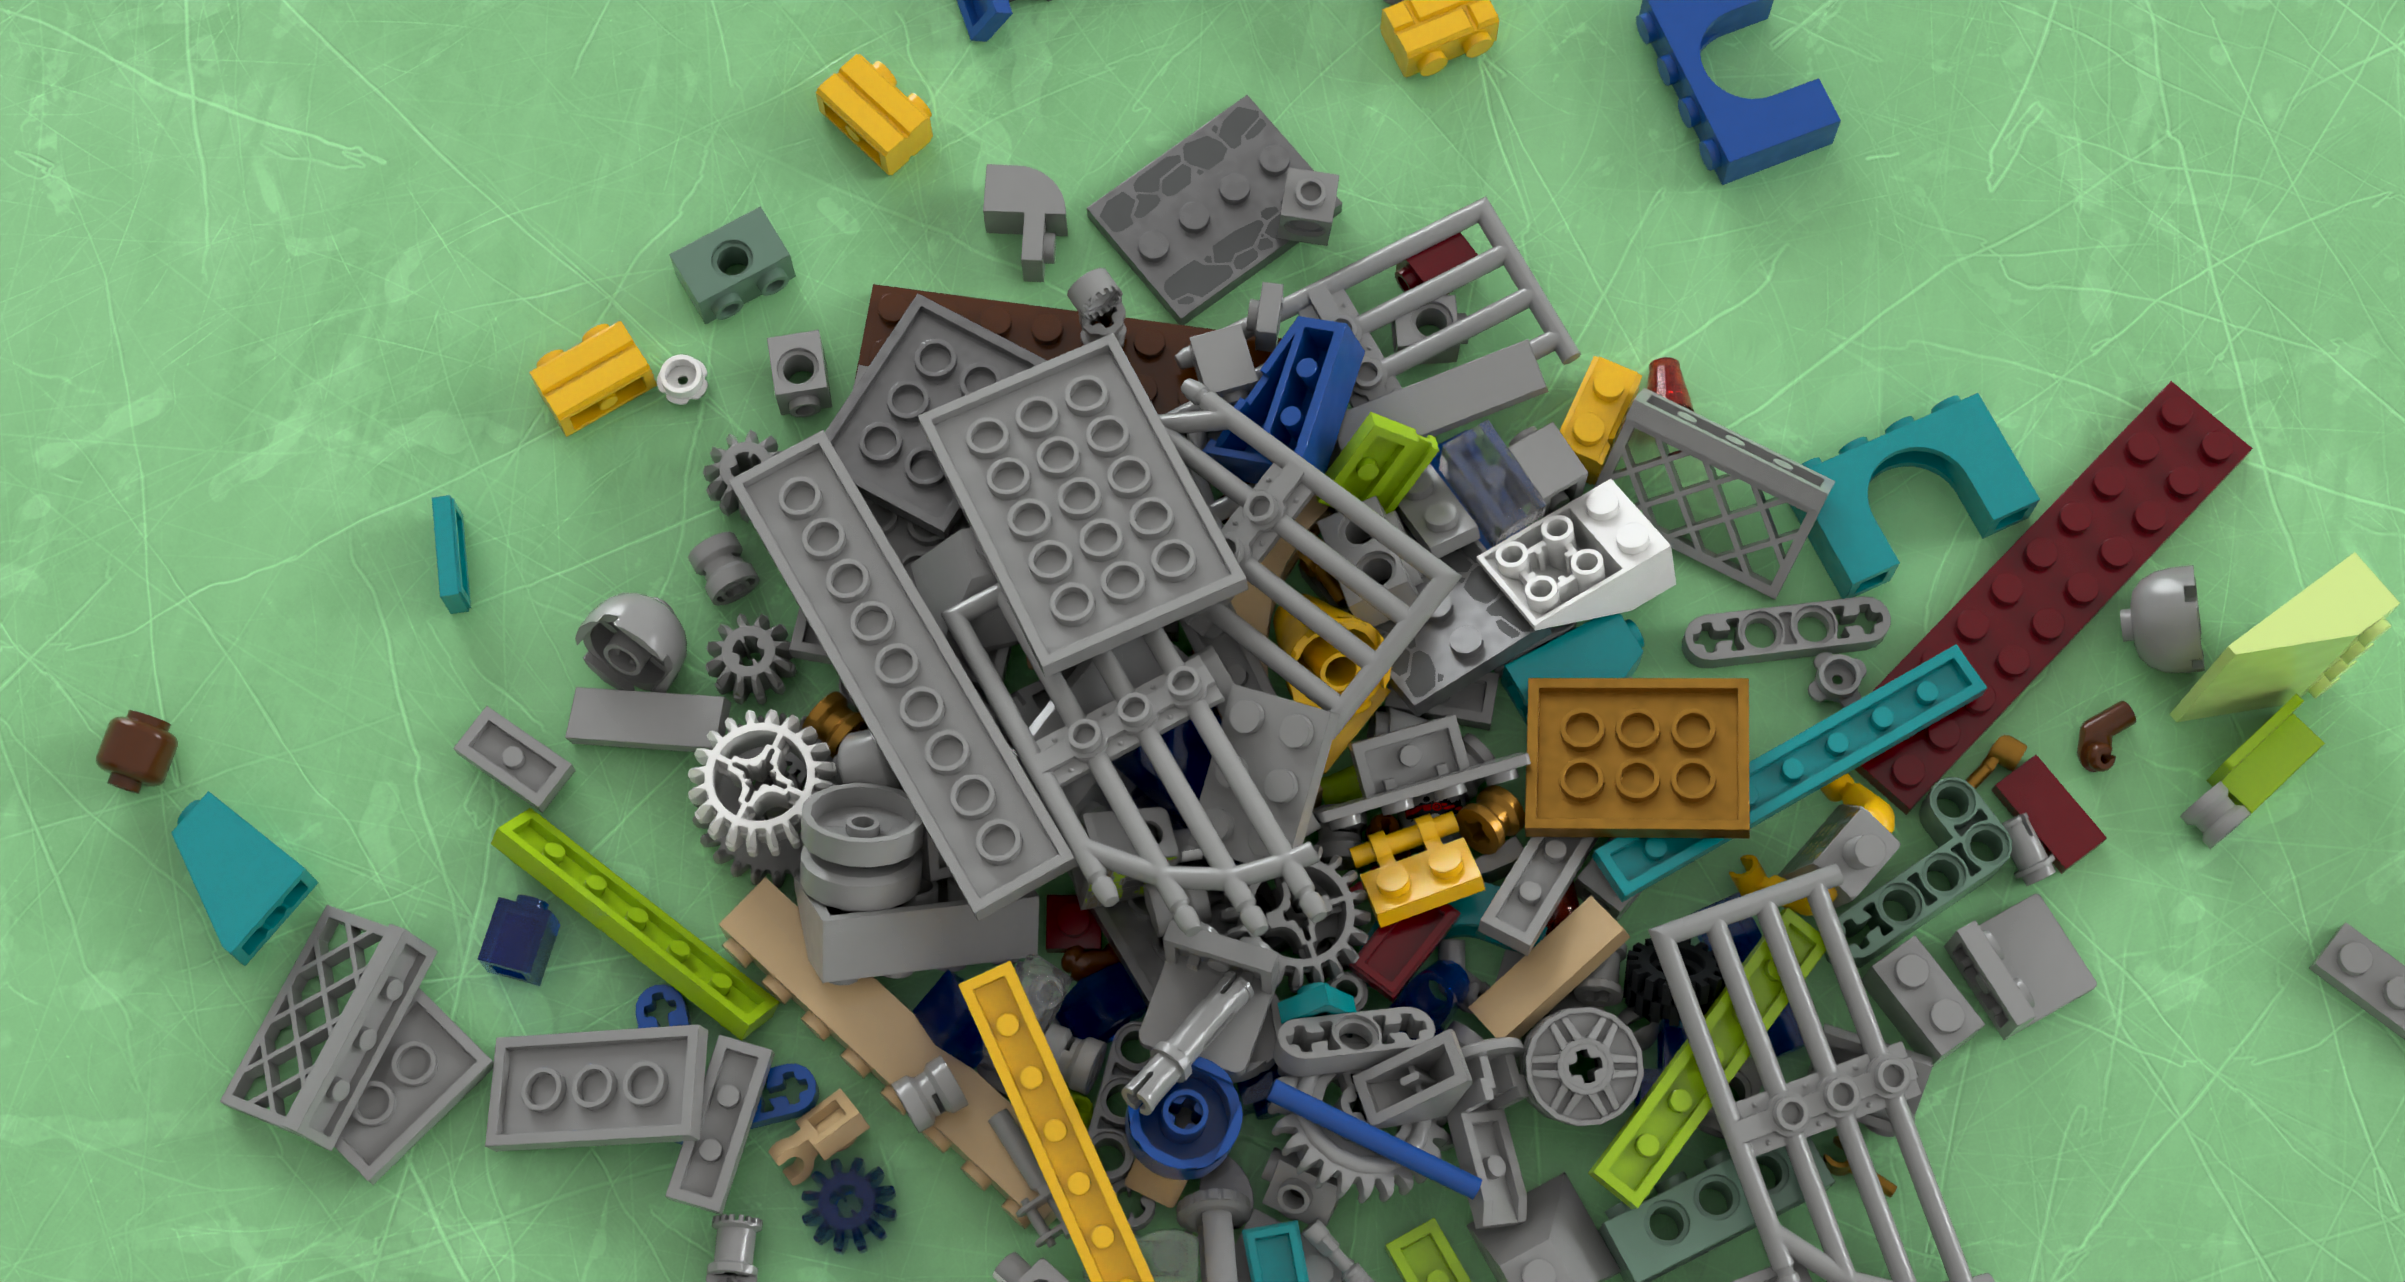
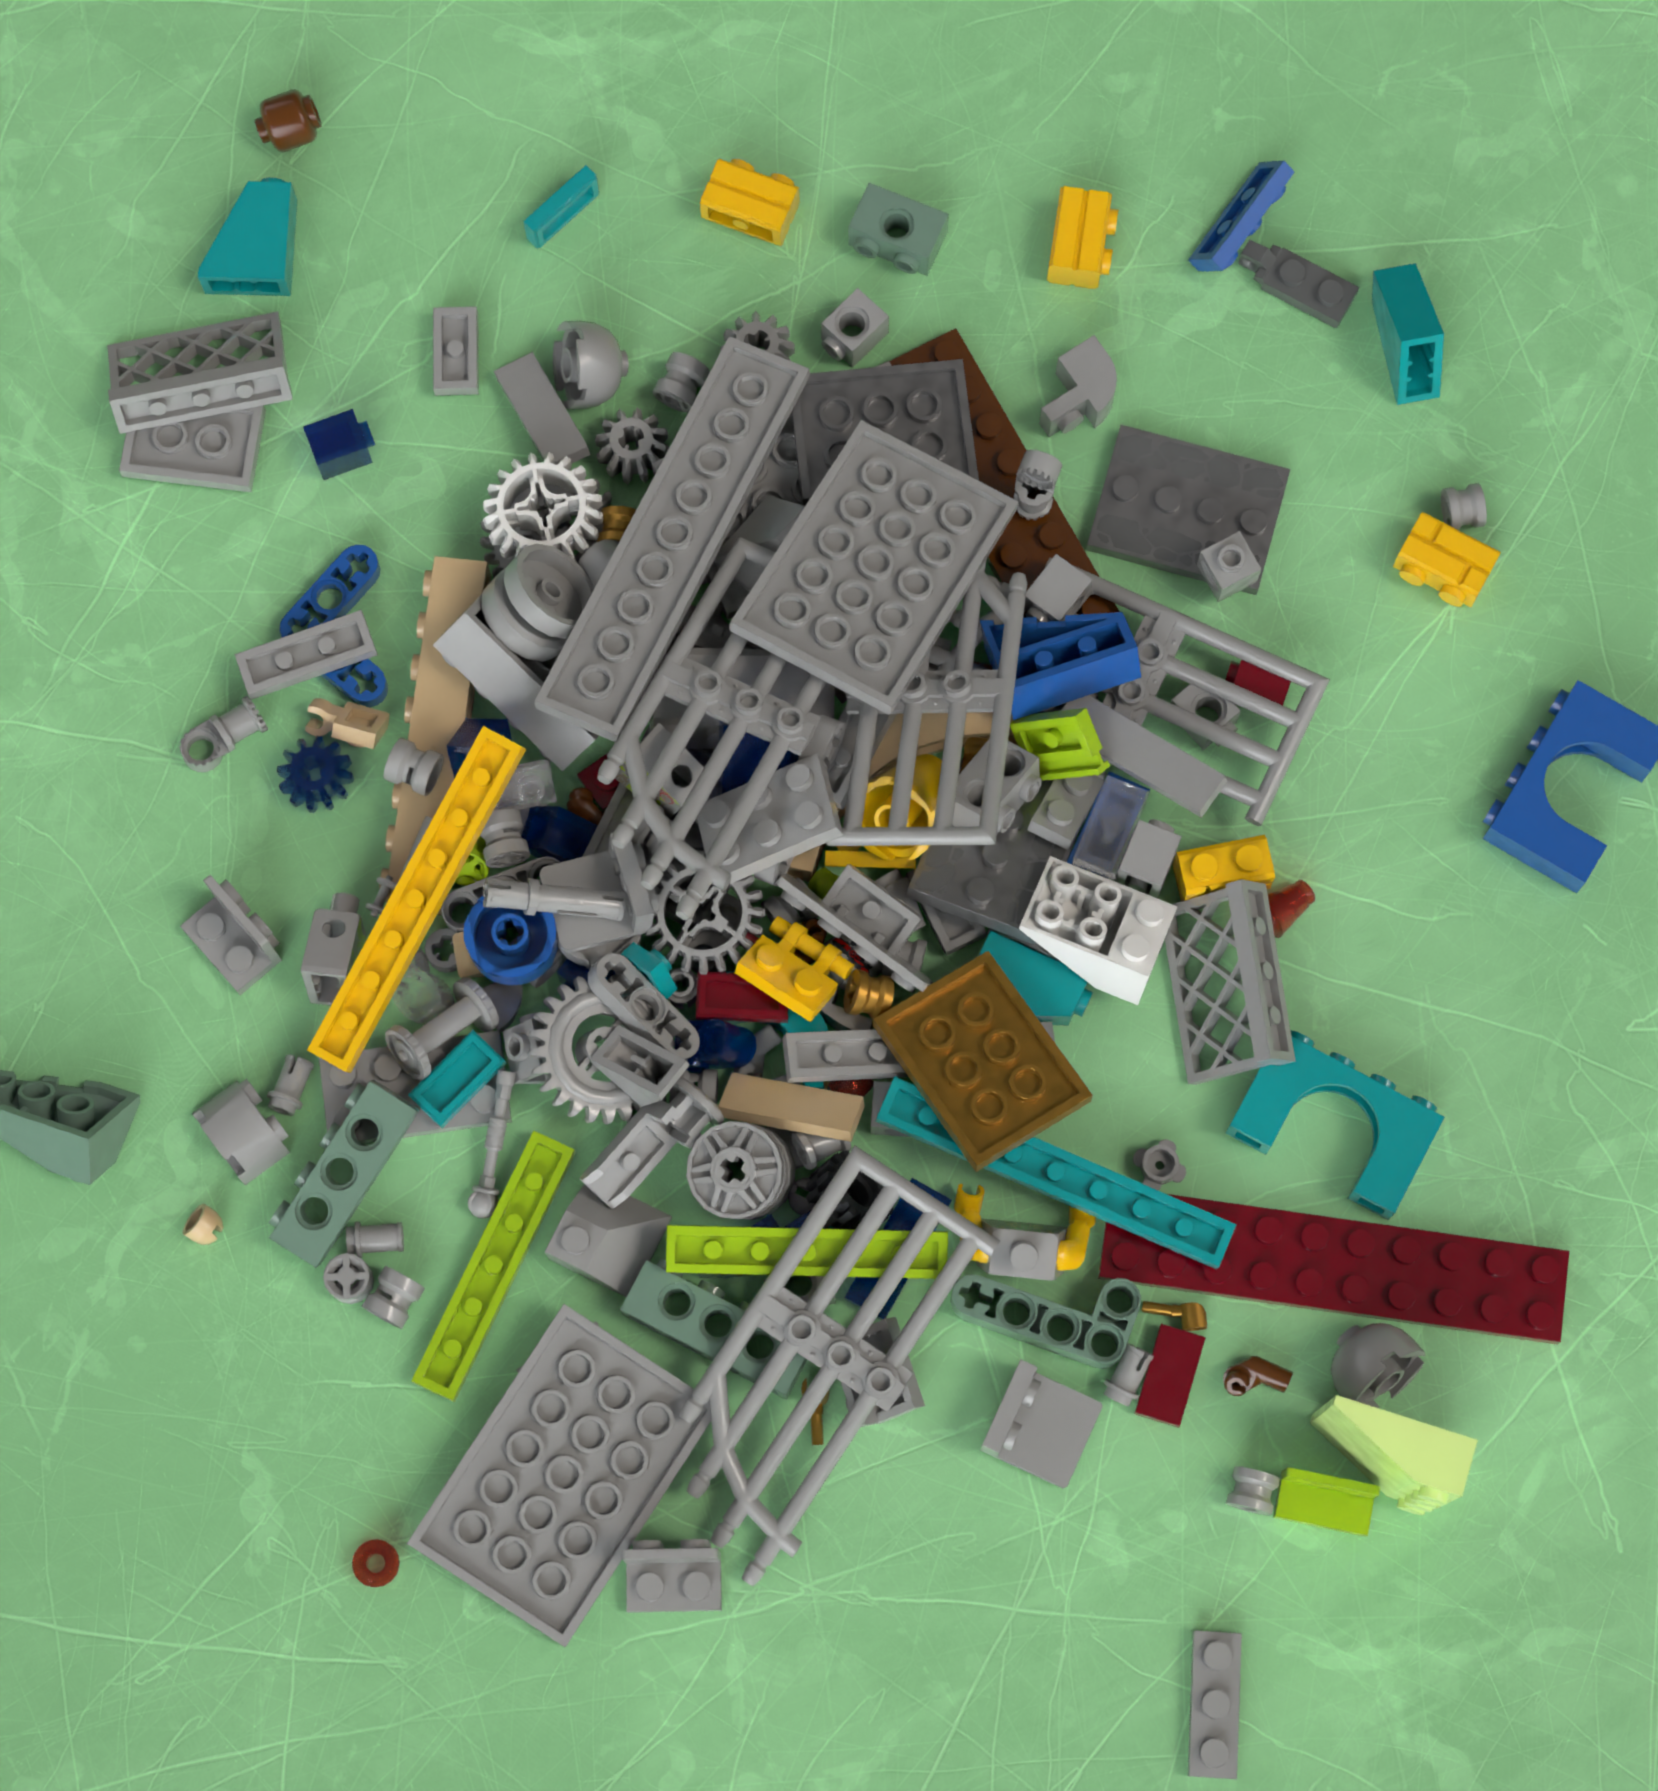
camera: 55 degrees right, 5 degrees up
(597, 1088) = (274, 562): light grey plate -> none
(635, 923) = (402, 506): lime plate -> none
(678, 367) = (794, 248): white plate -> none
(1265, 316) = (1117, 594): light grey plate -> none
(1374, 1139) = (583, 1066): blue bar -> none
(1784, 625) = (1162, 1112): light grey beam -> none
(1922, 1001) = (961, 1373): light grey brick -> none

